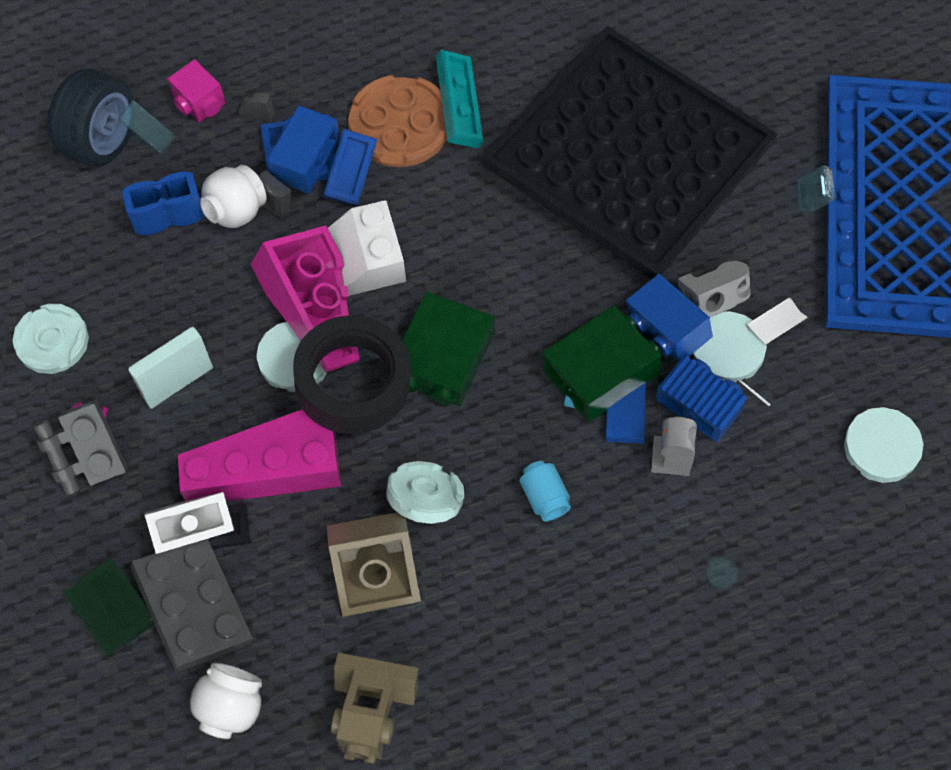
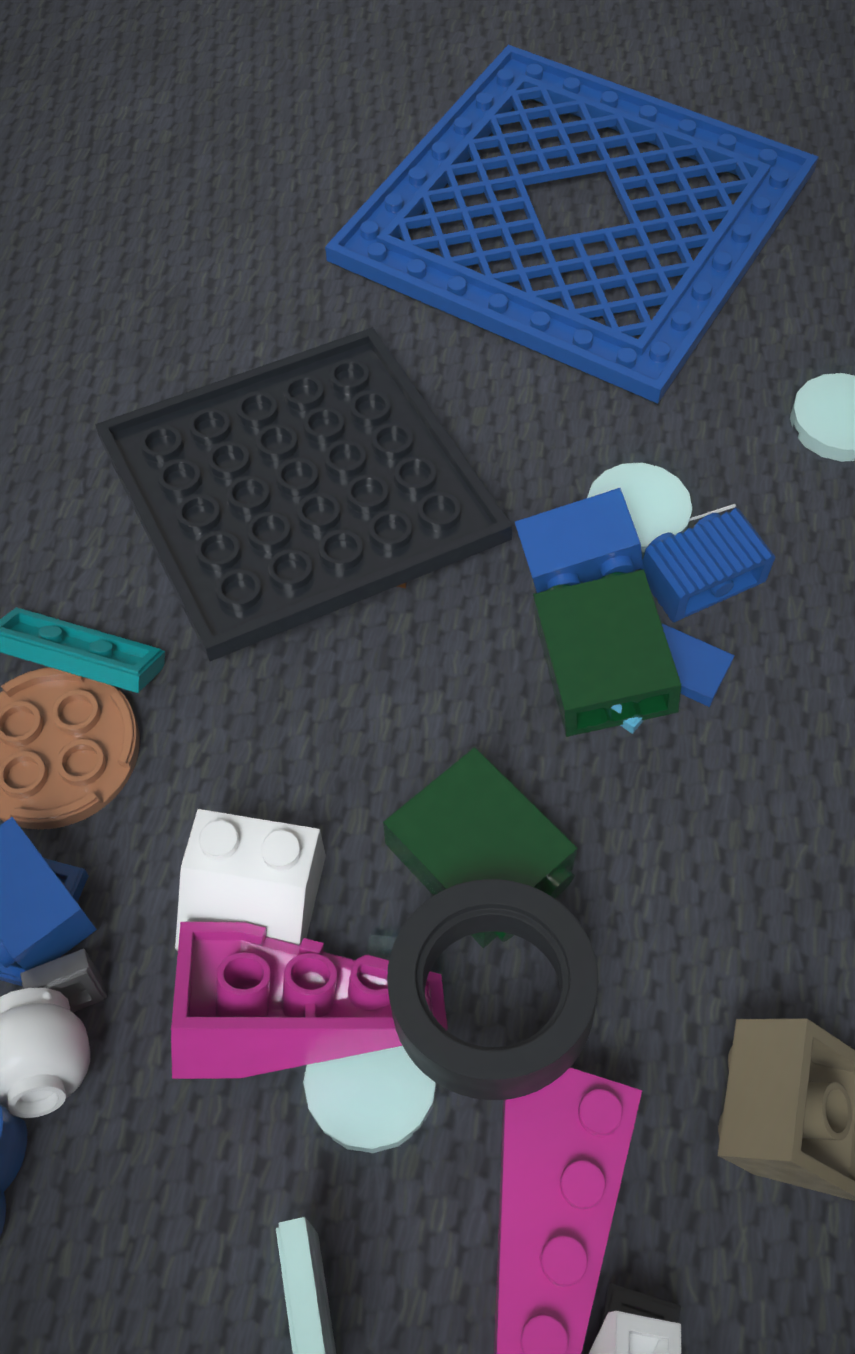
camera: 65 degrees left, 5 degrees down
(350, 168) = (92, 846): blue tile -> none
(424, 492) = (714, 976): light aqua tile -> none
(545, 490) = (770, 808): medium azure brick -> none
(675, 448) = (775, 620): light grey leg -> none
(719, 288) = (559, 471): light grey leg -> none
(776, 321) = (628, 444): white sticker -> none
(815, 189) = (472, 326): clear light blue tile -> none

